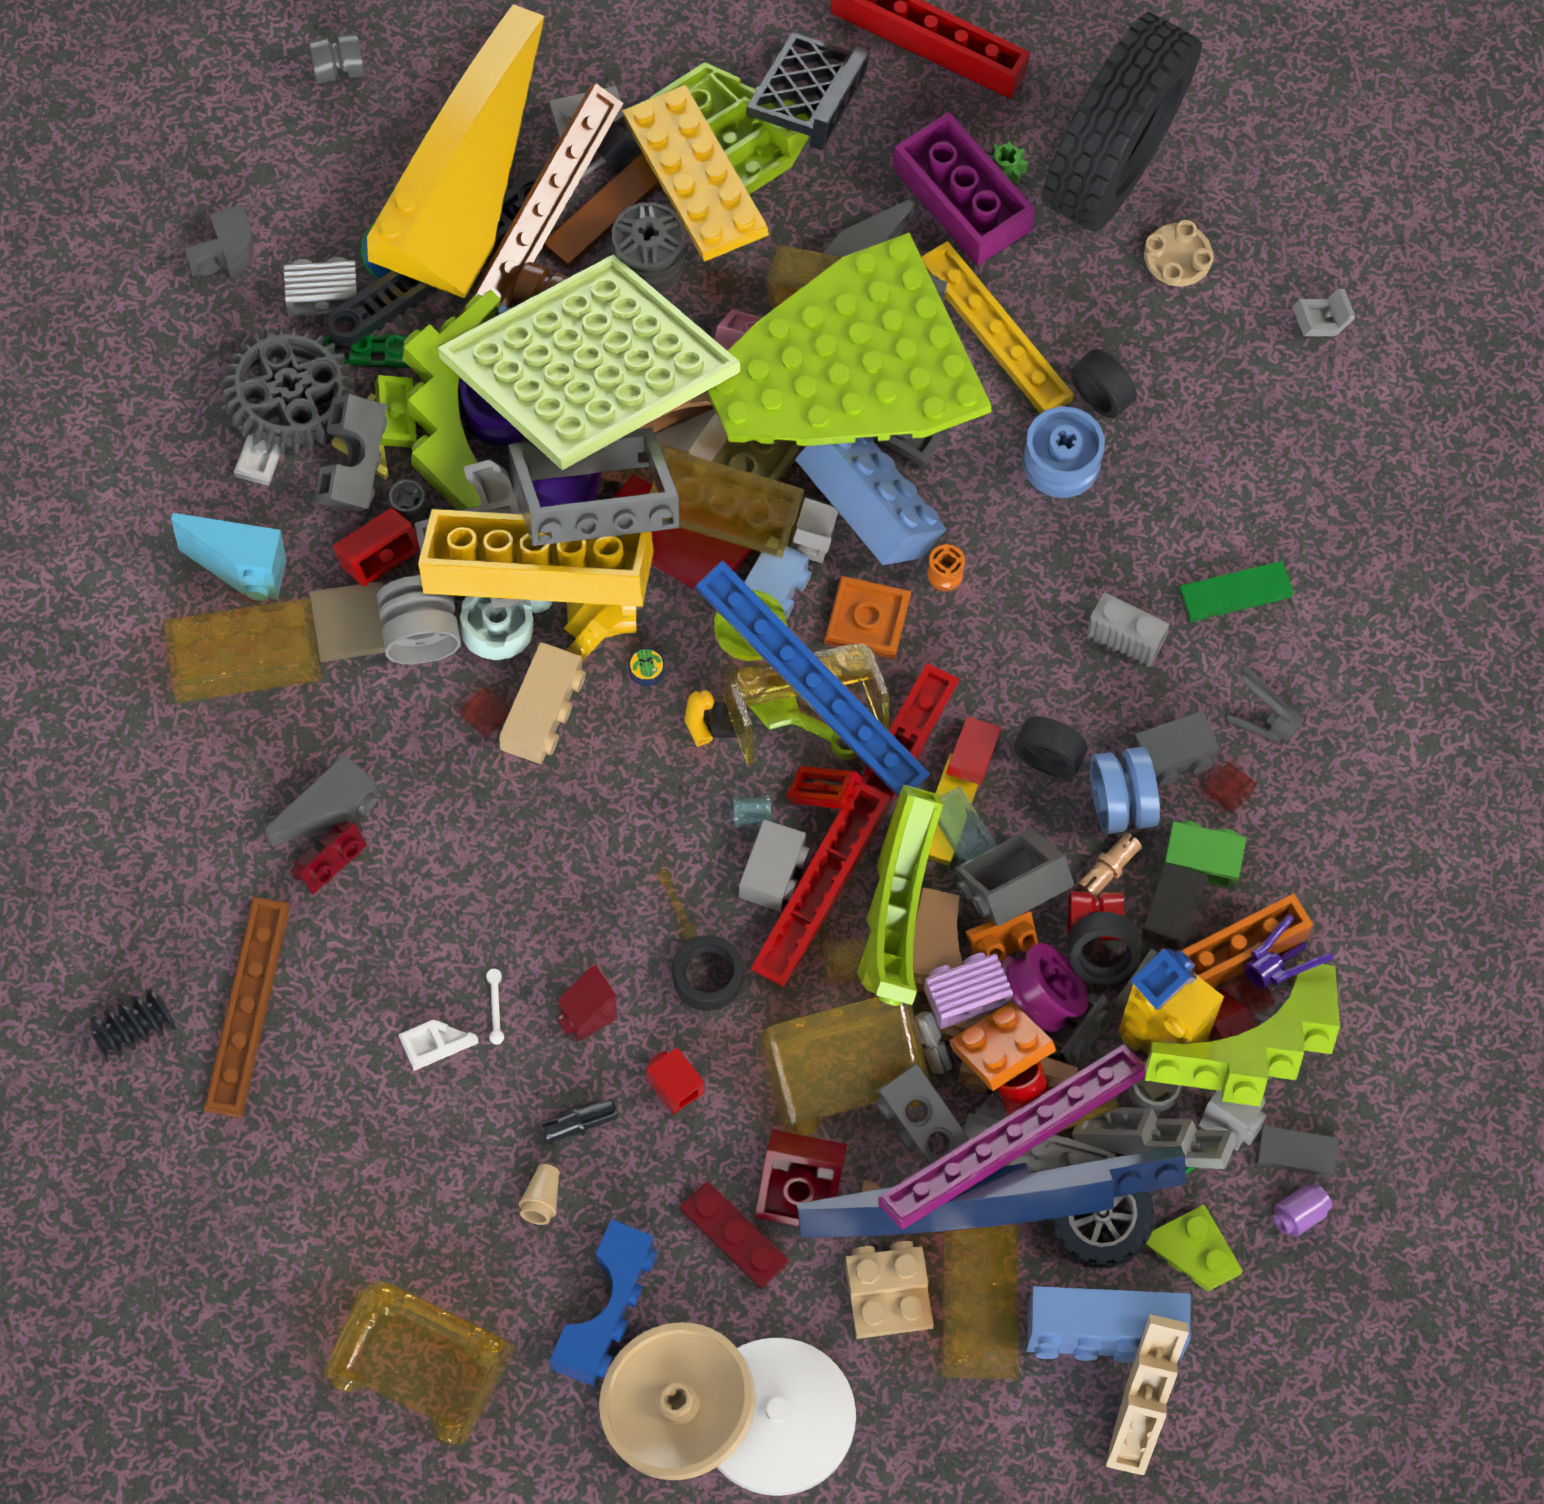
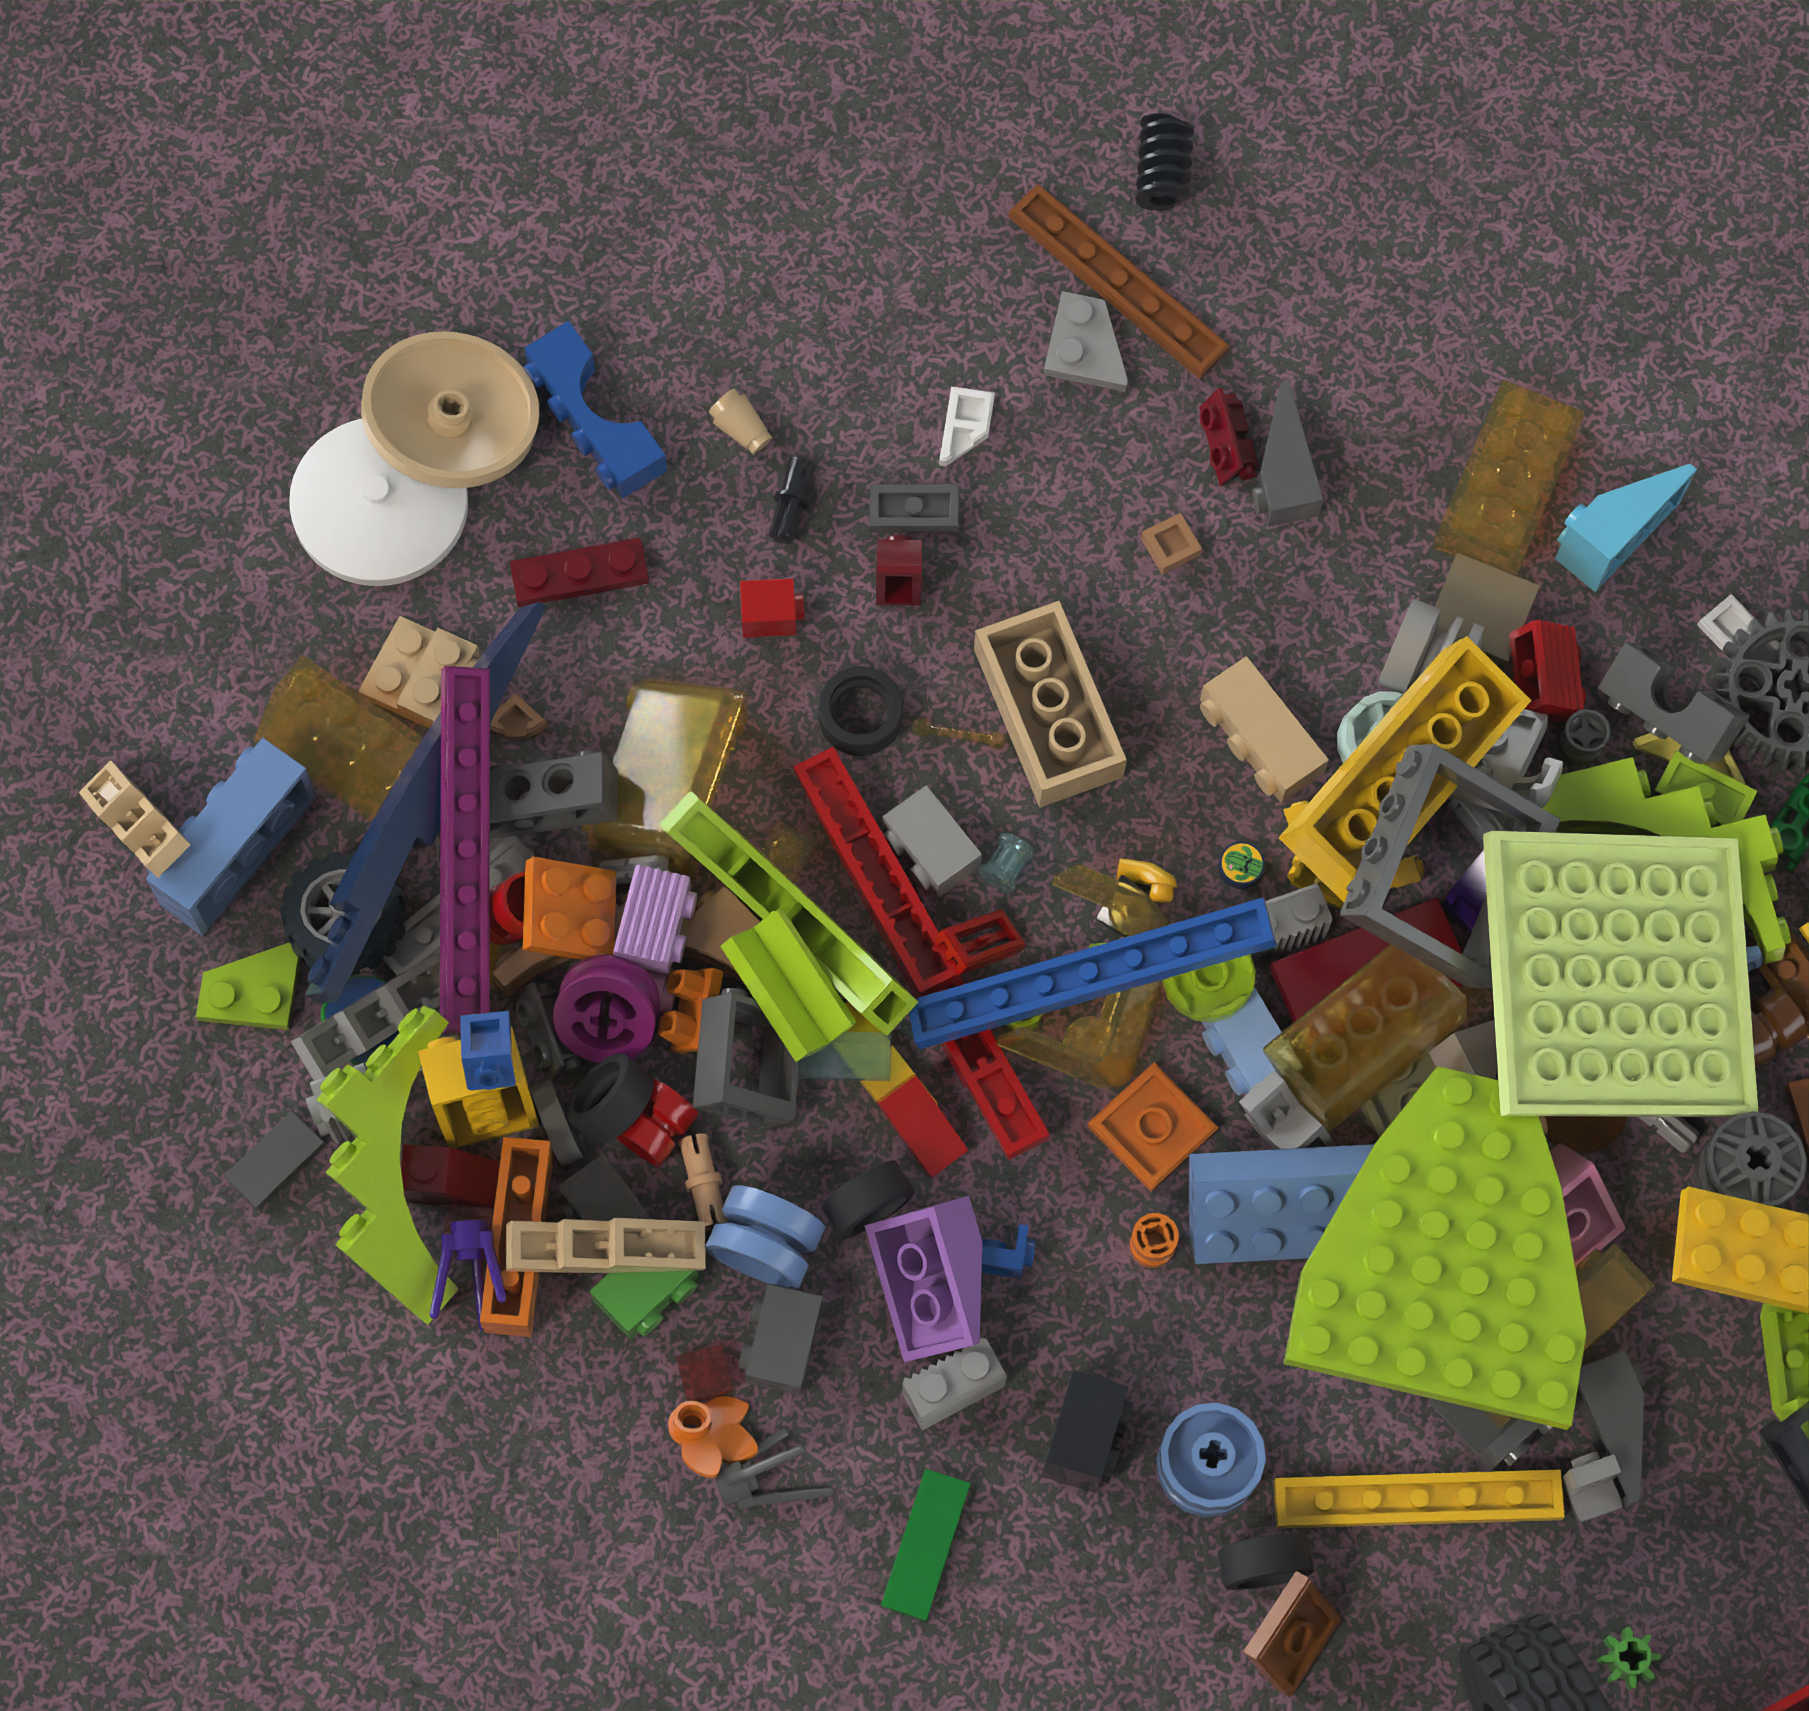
camera: 125 degrees right, 5 degrees up
(315, 999) = (1085, 344): none -> light grey wing
(419, 1358) = (661, 230): clear yellow windscreen -> none
(438, 844) = (1171, 543): none -> medium nougat plate
(485, 712) = (1293, 676): clear red tile -> none
(494, 977) = (996, 517): white hinge -> none
(528, 1031) = (914, 508): none -> dark grey plate
(620, 845) = (1049, 704): none -> tan brick
(677, 612) = (1297, 920): none -> light grey brick
(798, 1172) = (588, 661): dark red slope -> none
(922, 234) = (1592, 1486): none -> light grey bracket
(950, 874) = (789, 985): none -> lime panel
(963, 188) = (1623, 1575): magenta brick -> none
(1028, 652) = (1008, 1262): none -> blue bracket
(1073, 672) = (931, 1276): none -> medium lavender slope
(1103, 527) = (1084, 1432): none -> black brick
(1136, 345) = (1292, 1634): none -> dark orange plate
(1206, 878) = (605, 1246): none -> tan slope
(1267, 750) = (717, 1436): none -> orange plate
(1302, 1210) = (211, 1116): medium lavender brick -> none

